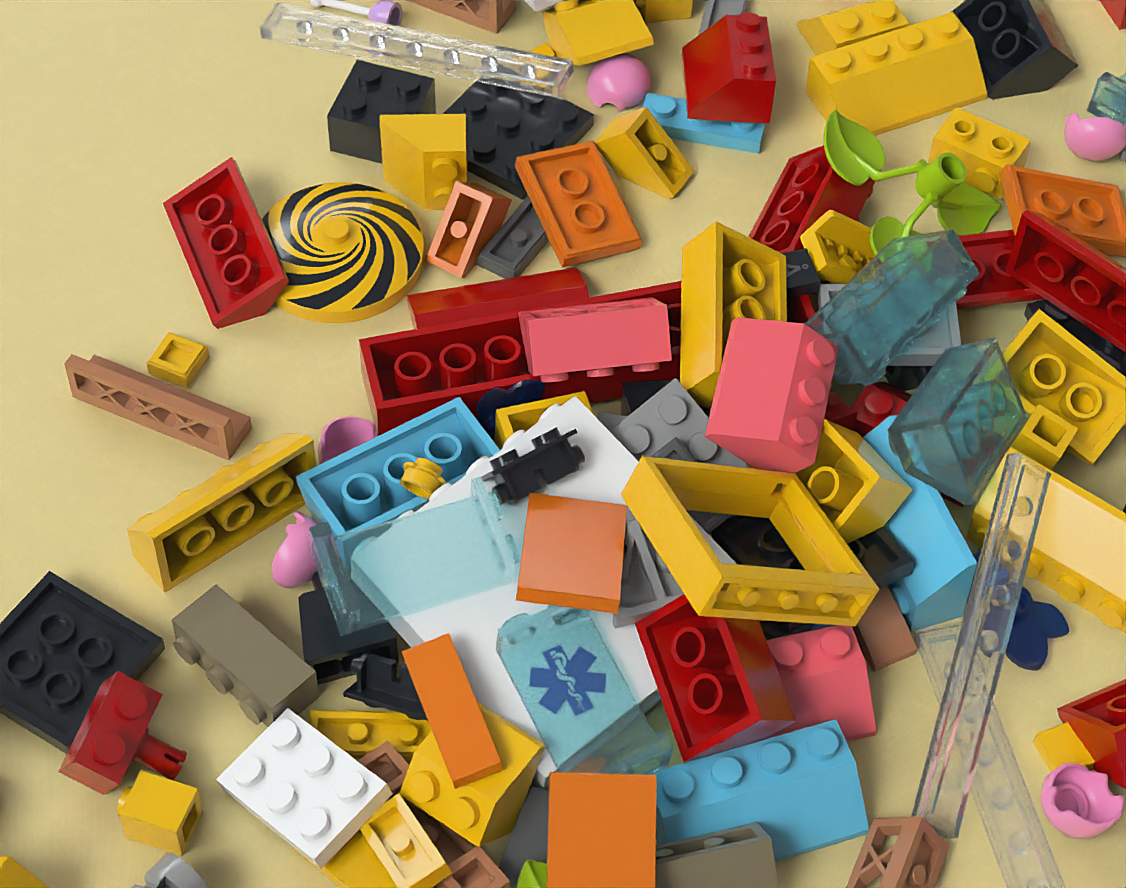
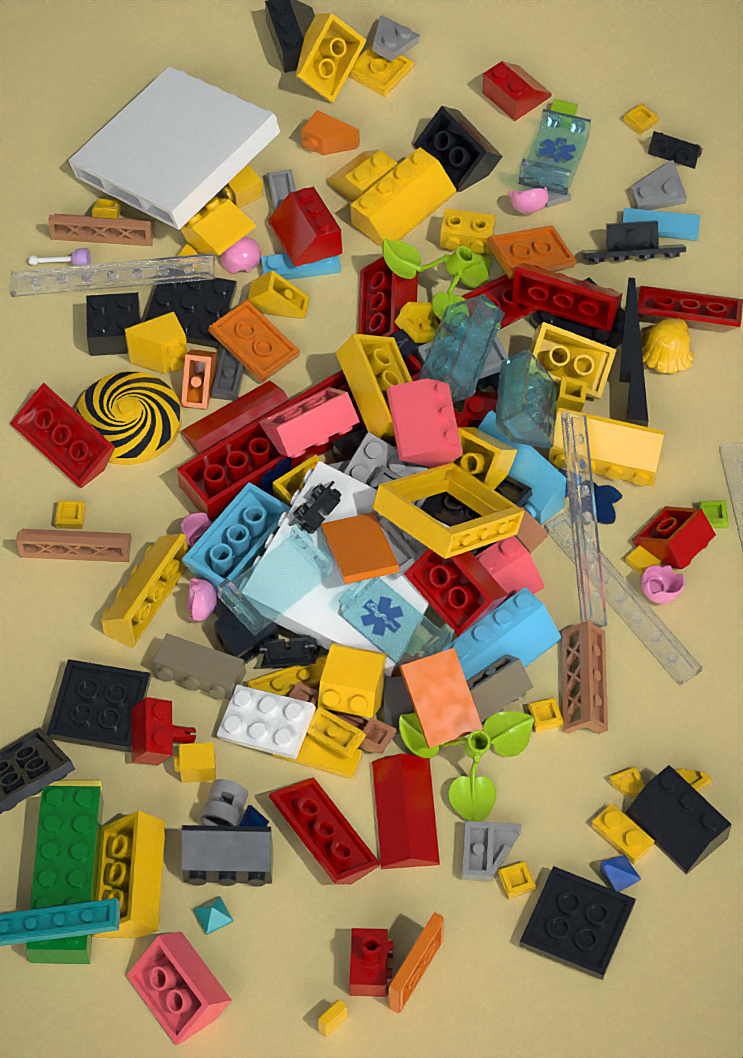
camera: 20 degrees left, 5 degrees up
(422, 477) = (255, 535): yellow plate -> none
(452, 711) = (331, 653): orange tile -> none

